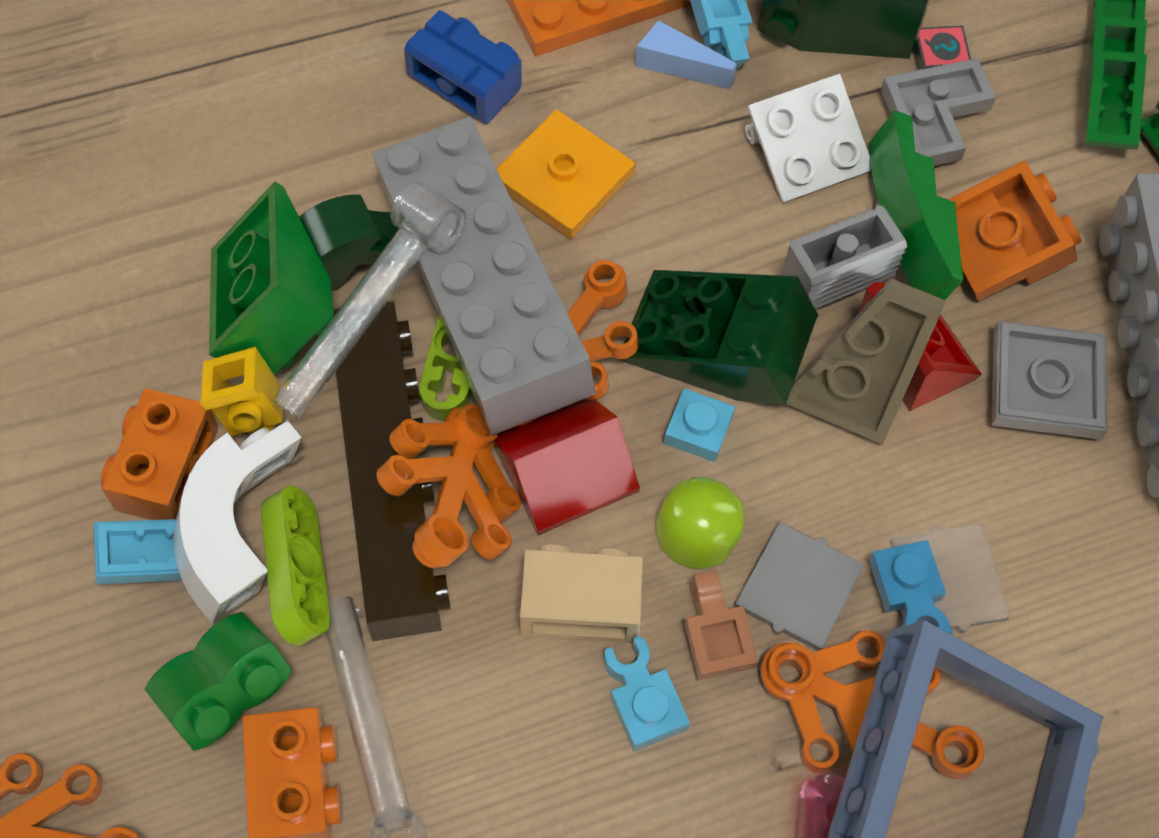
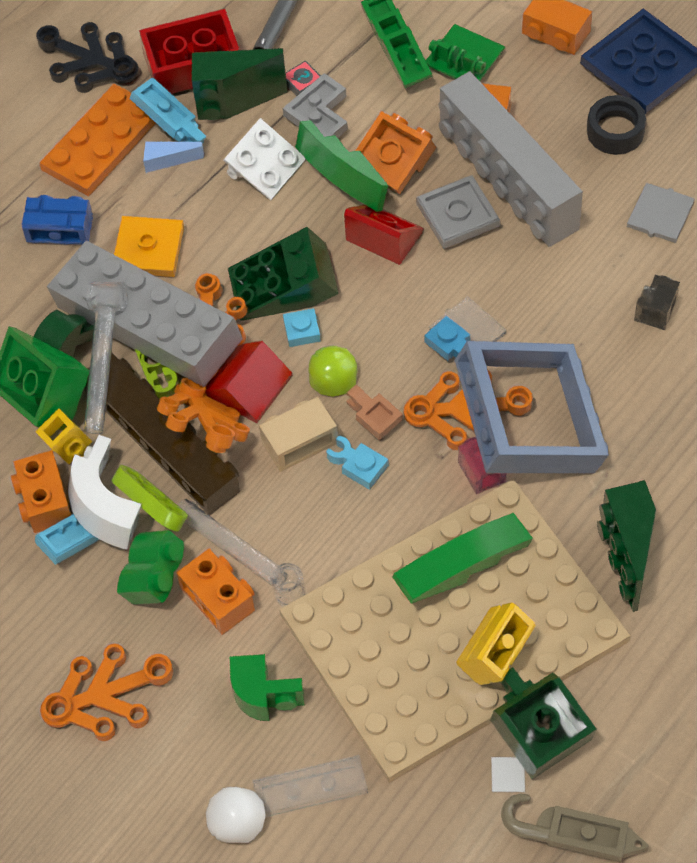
camera: 25 degrees left, 5 degrees down
(799, 586) = (399, 372): light grey piece -> none
(846, 256) = (323, 205): light grey brick -> none
(870, 363) = (368, 248): dark tan wing -> none

